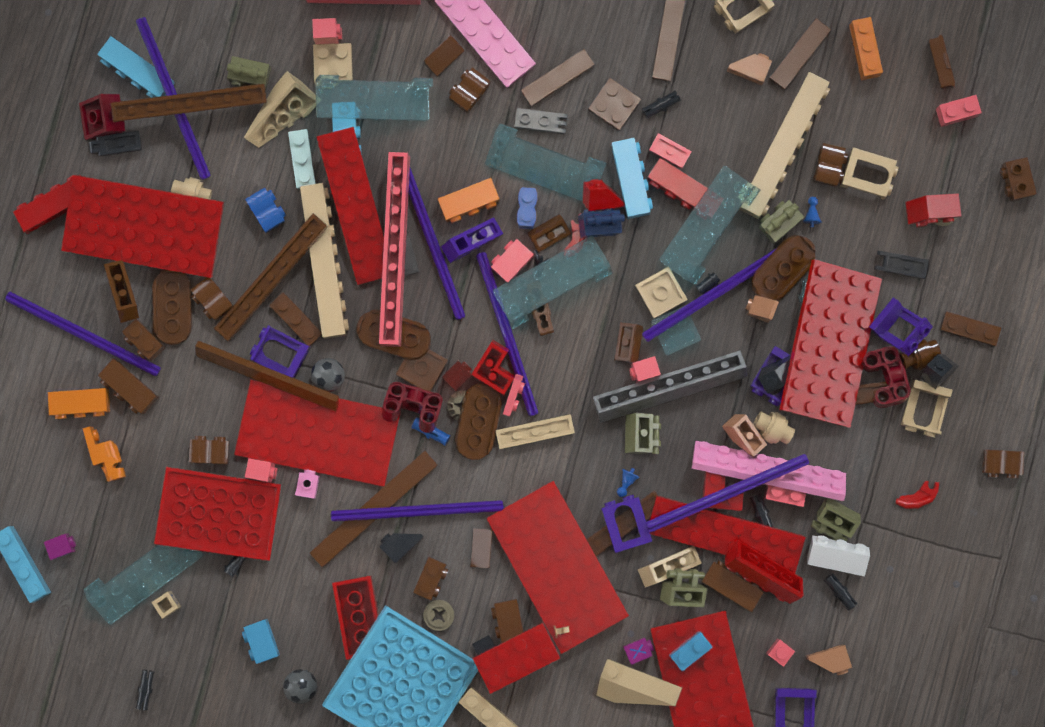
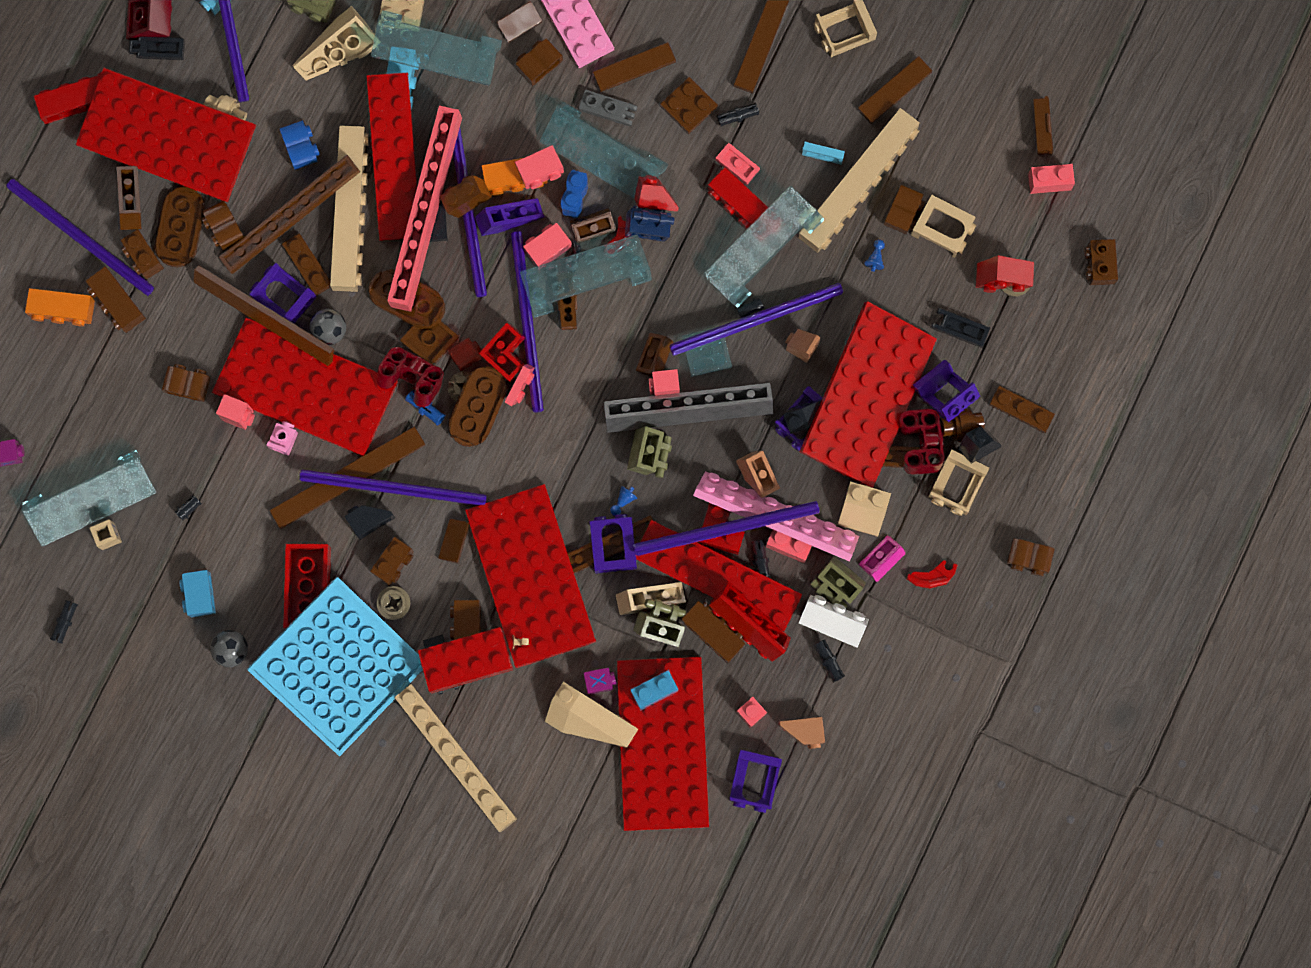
camera: 10 degrees right, 5 degrees down
(104, 454) = (74, 365): orange plate -> none
(188, 102) = (241, 17): reddish brown tile -> none
(217, 514) = (179, 449): red plate -> none
(301, 158) = (348, 98): light aqua plate -> none
(427, 232) = (465, 196): none -> reddish brown brick
(491, 192) = (539, 168): none -> coral brick
(535, 431) = (535, 429): tan plate -> none
(630, 178) = (691, 184): medium azure brick -> none
(661, 292) = (699, 308): tan plate -> none
(746, 126) = (823, 153): none -> medium azure tile
(751, 68) = (840, 94): nougat slope -> none
(774, 427) = (790, 472): tan piece -> none
(781, 221) = (840, 258): olive brick -> none
(783, 268) = (834, 306): reddish brown tile -> none
(846, 448) = (864, 509): none -> tan slope
(866, 48) = (965, 96): orange brick -> none
(870, 489) = (882, 558): none -> dark pink slope

